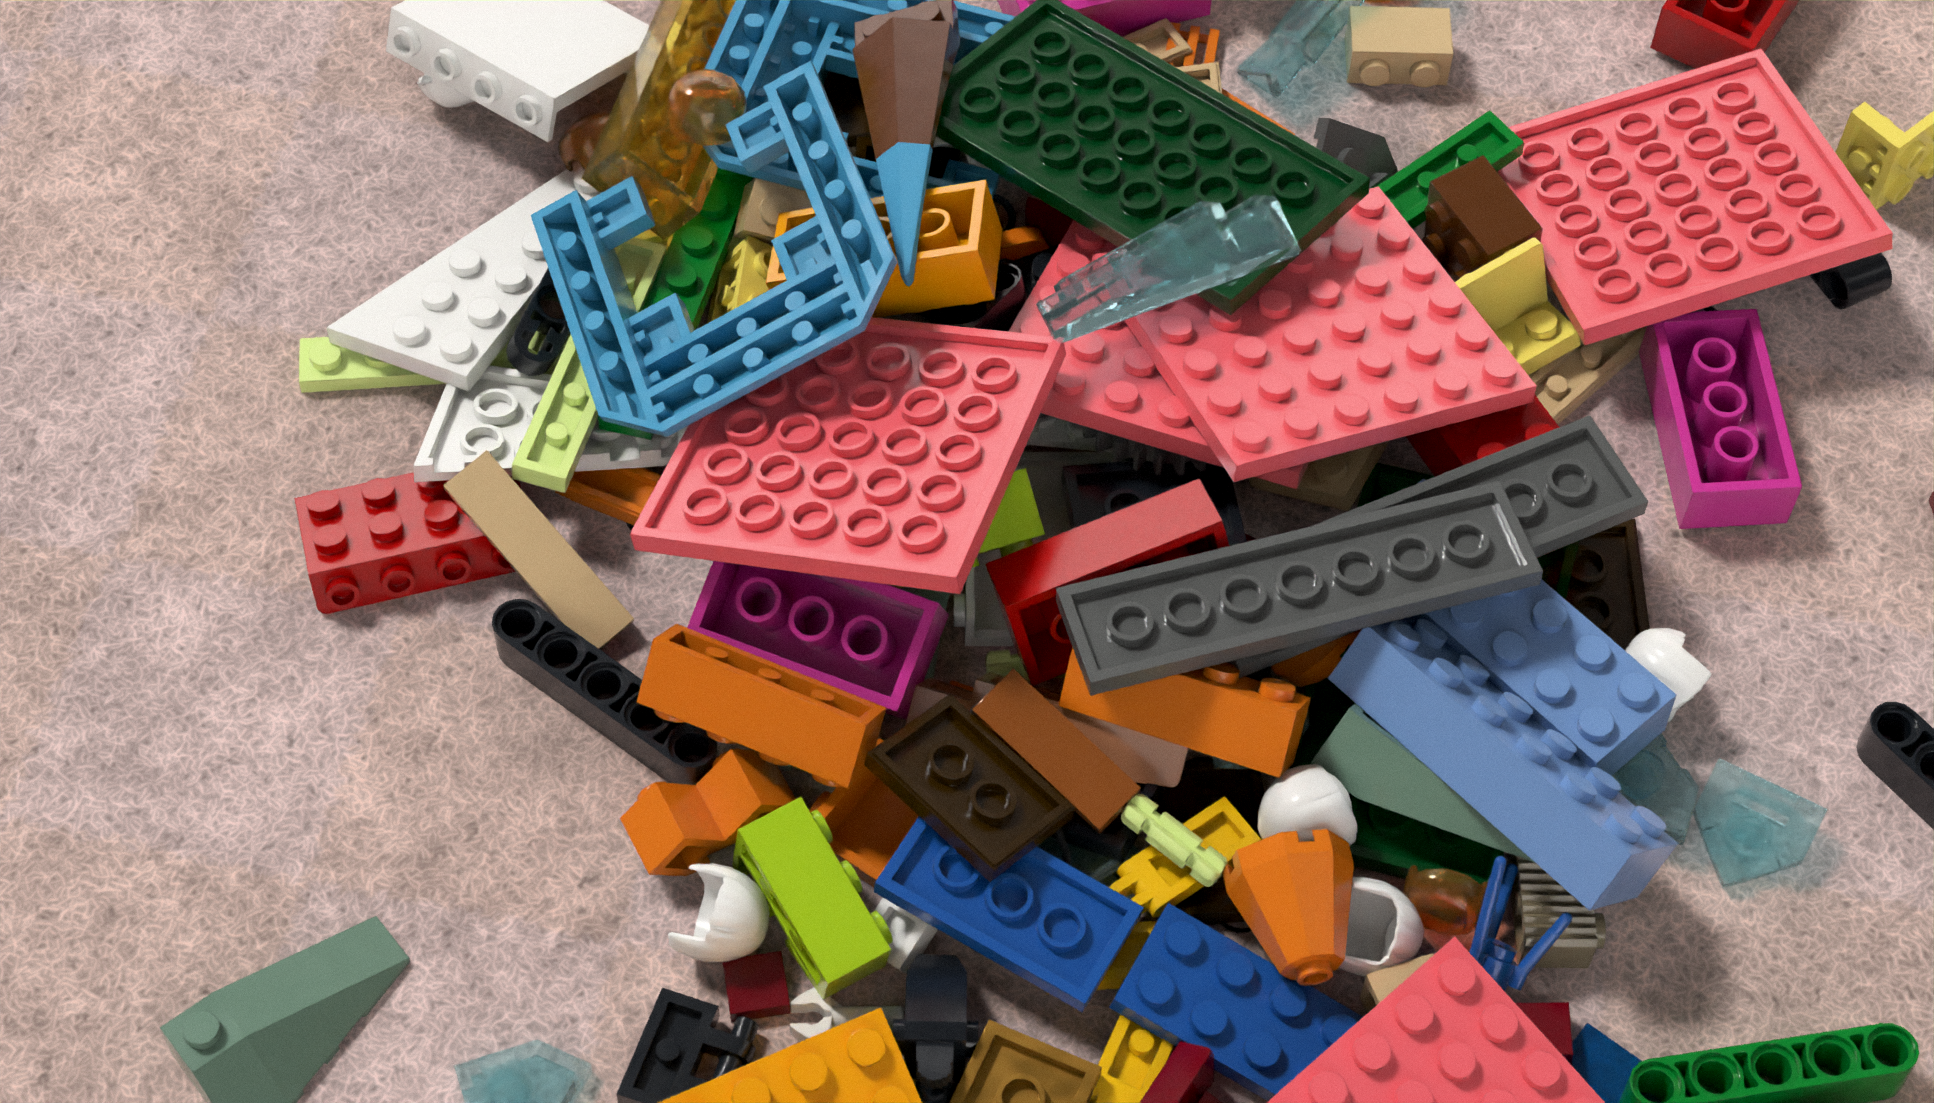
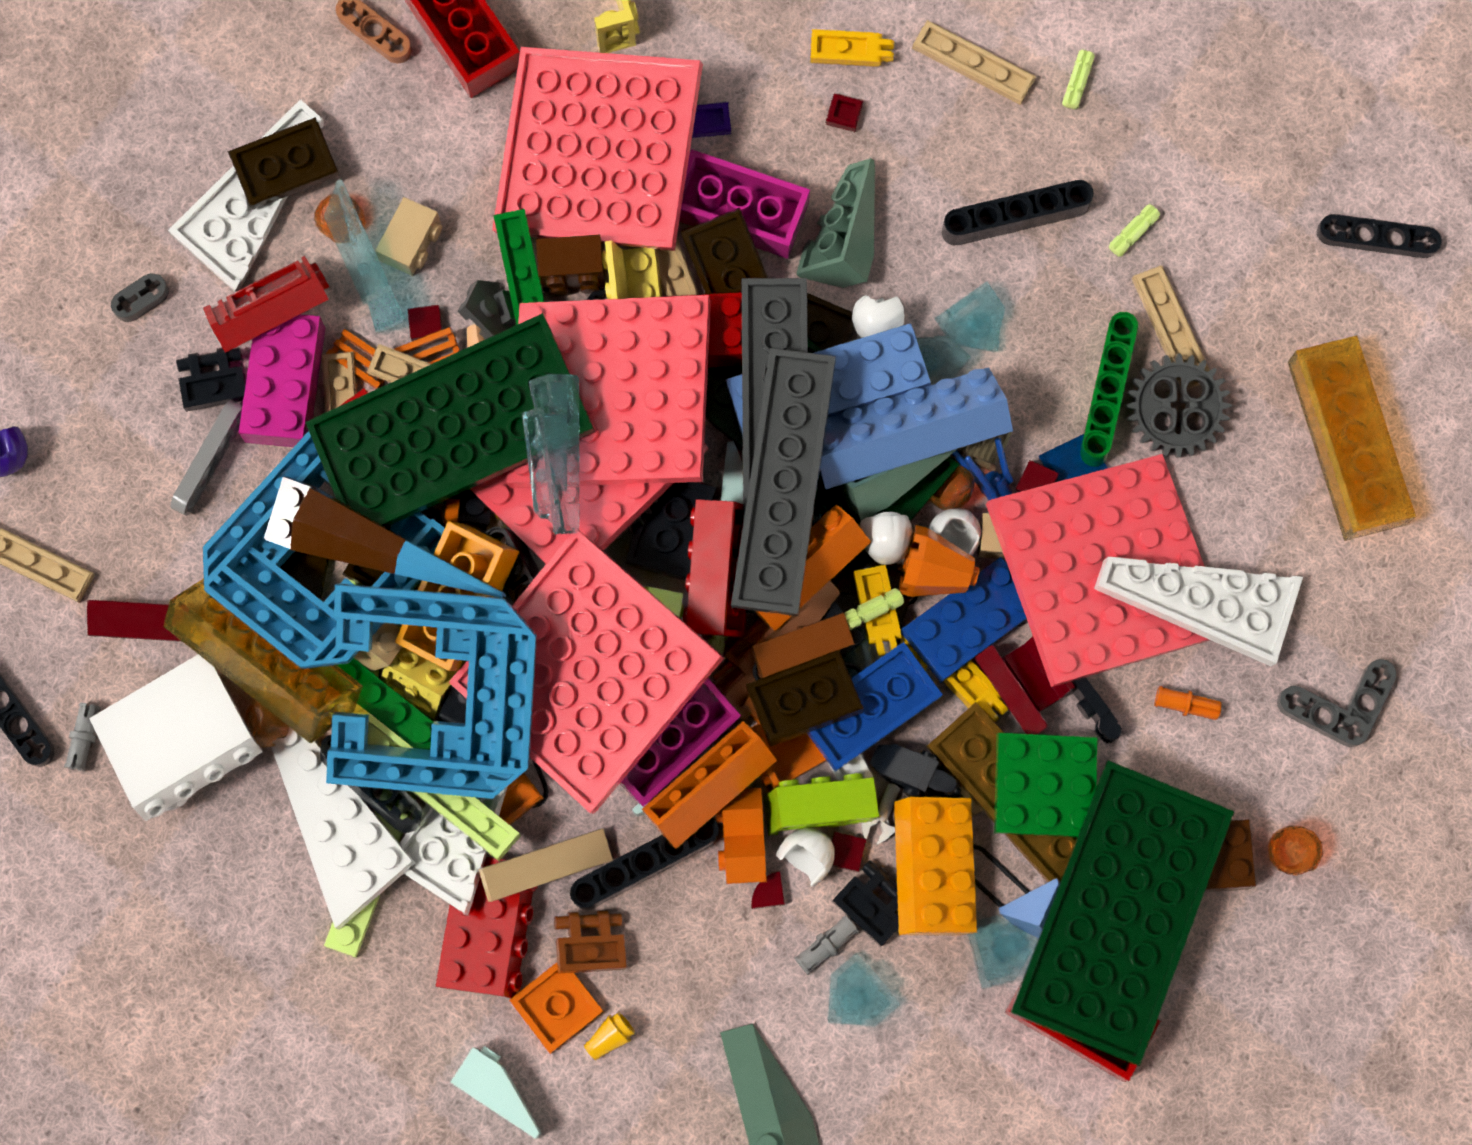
camera: 65 degrees left, 20 degrees up
(161, 633) = (491, 1085): none -> light aqua slope
(310, 757) = (610, 1035): none -> yellow cone
(328, 670) = (556, 1007): none -> orange tile
(428, 675) = (590, 953): none -> dark orange plate
(584, 1014) = (826, 945): none -> light grey pin
(637, 896) = (768, 893): none -> dark red tile
(702, 105) = (308, 653): clear orange hair -> none
(1291, 112) = (424, 321): none -> dark red tile
(1635, 406) = (723, 252): none -> dark brown tile
(1742, 593) = (846, 240): none -> sand green wedge
(1814, 331) = (712, 120): none -> dark purple tile

